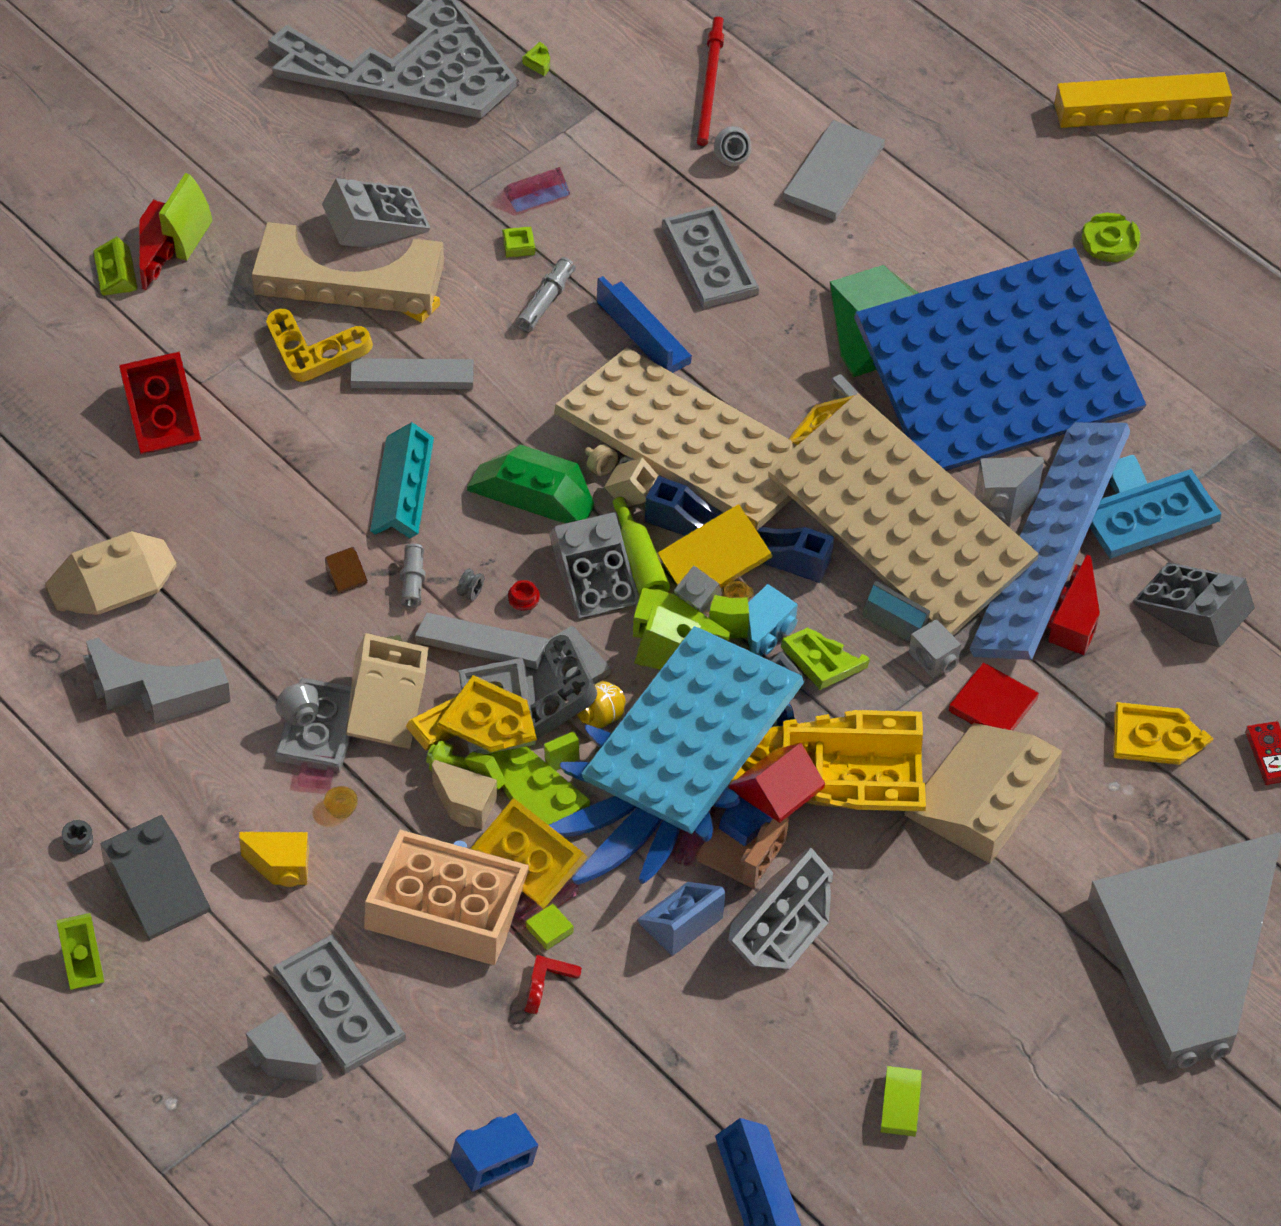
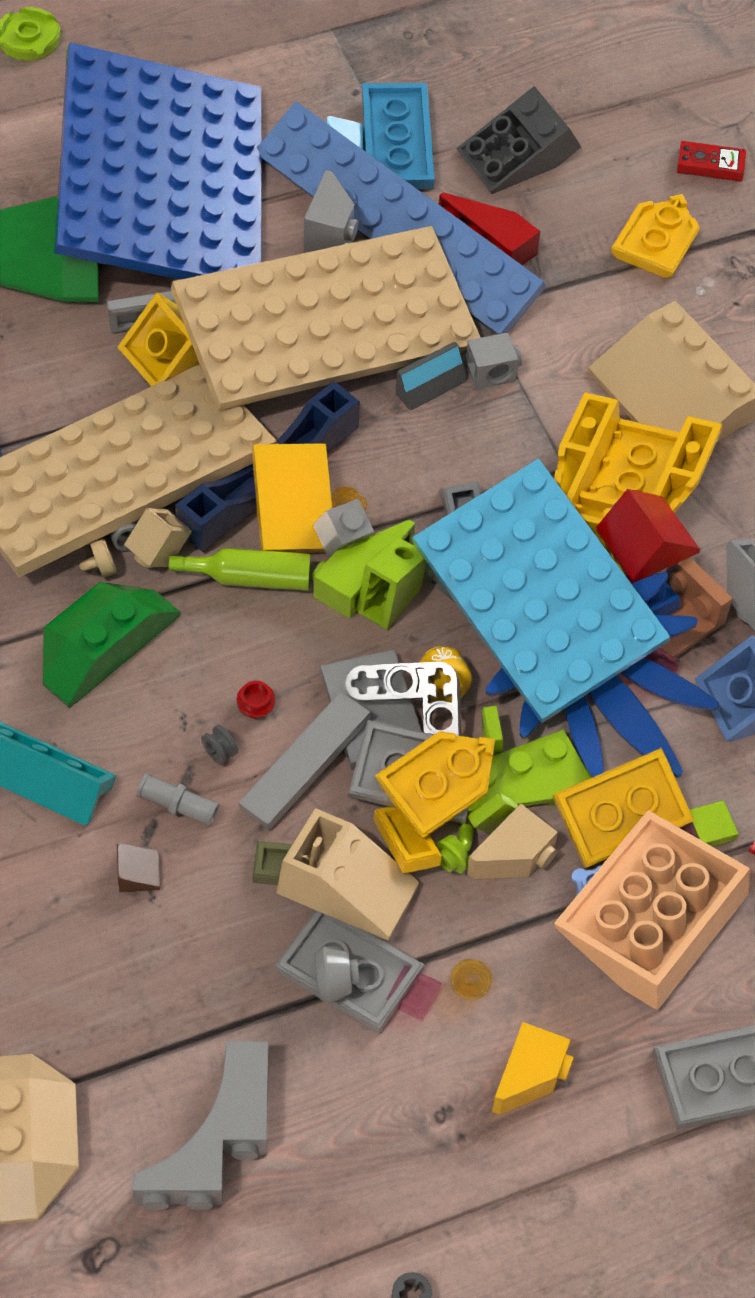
camera: 70 degrees left, 5 degrees up
(154, 877) = (511, 1219): dark grey slope -> none
(594, 565) = (246, 616): light grey slope -> none
(731, 615) = (382, 508): lime piece -> none
(769, 619) = (394, 487): medium azure slope -> none
(822, 657) = (460, 459): lime wing -> none
(993, 699) = (567, 341): red tile -> none

